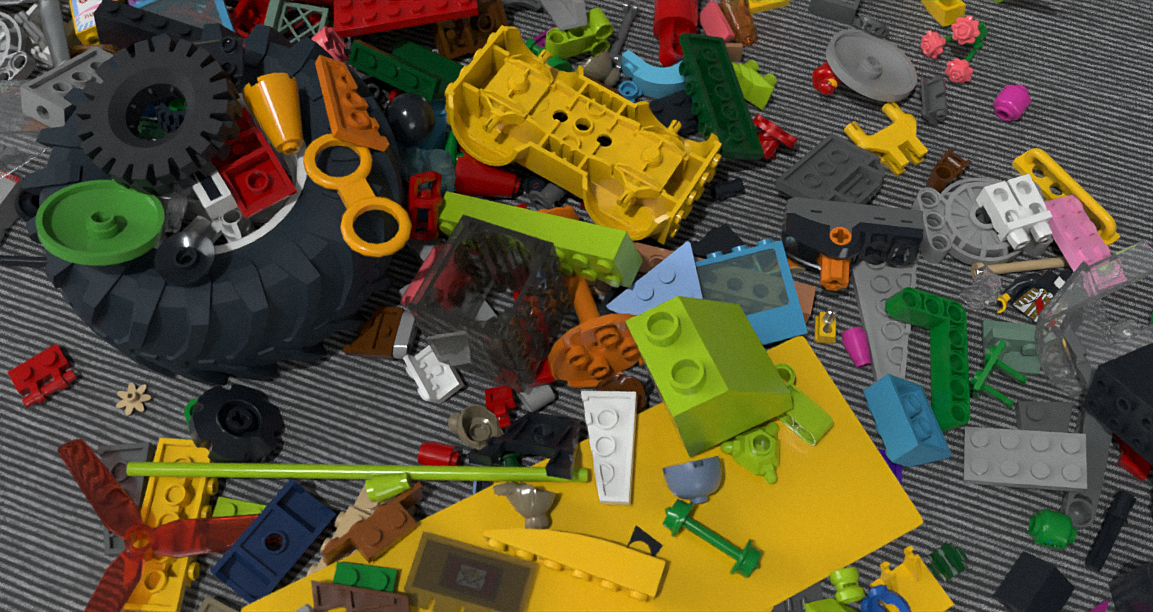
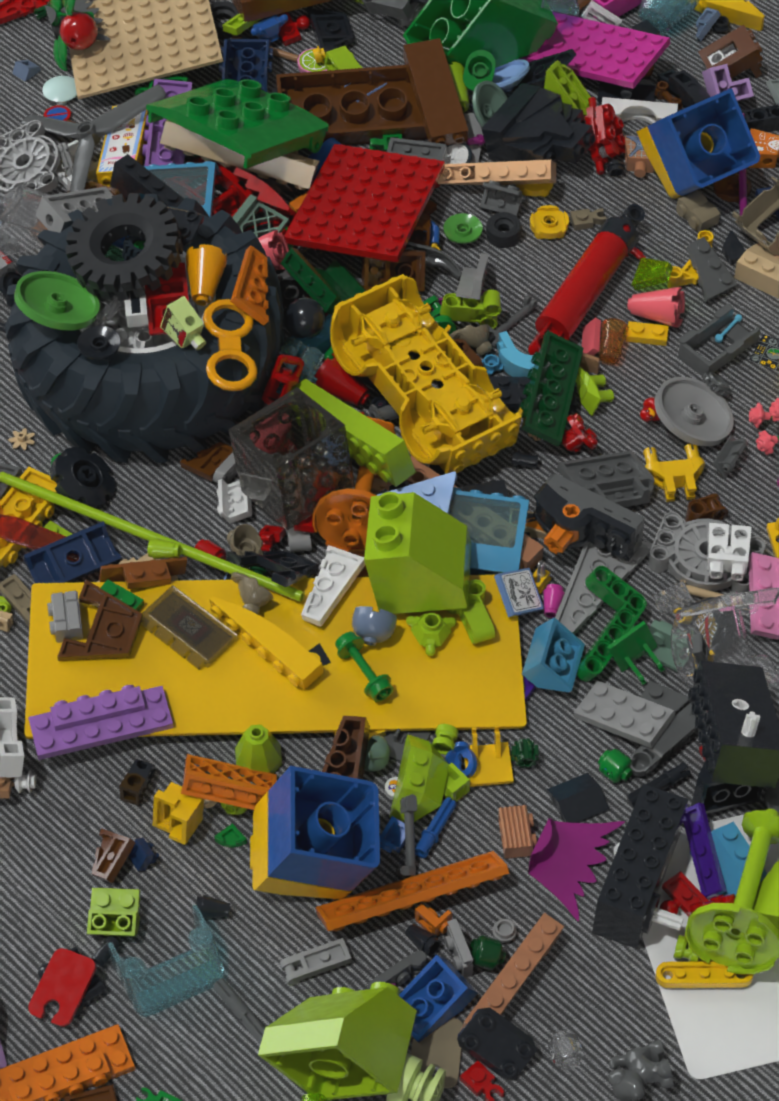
camera: 25 degrees right, 10 degrees down
(287, 190) = (183, 324): none -> yellowish green torso
(823, 356) = (518, 592): none -> tile

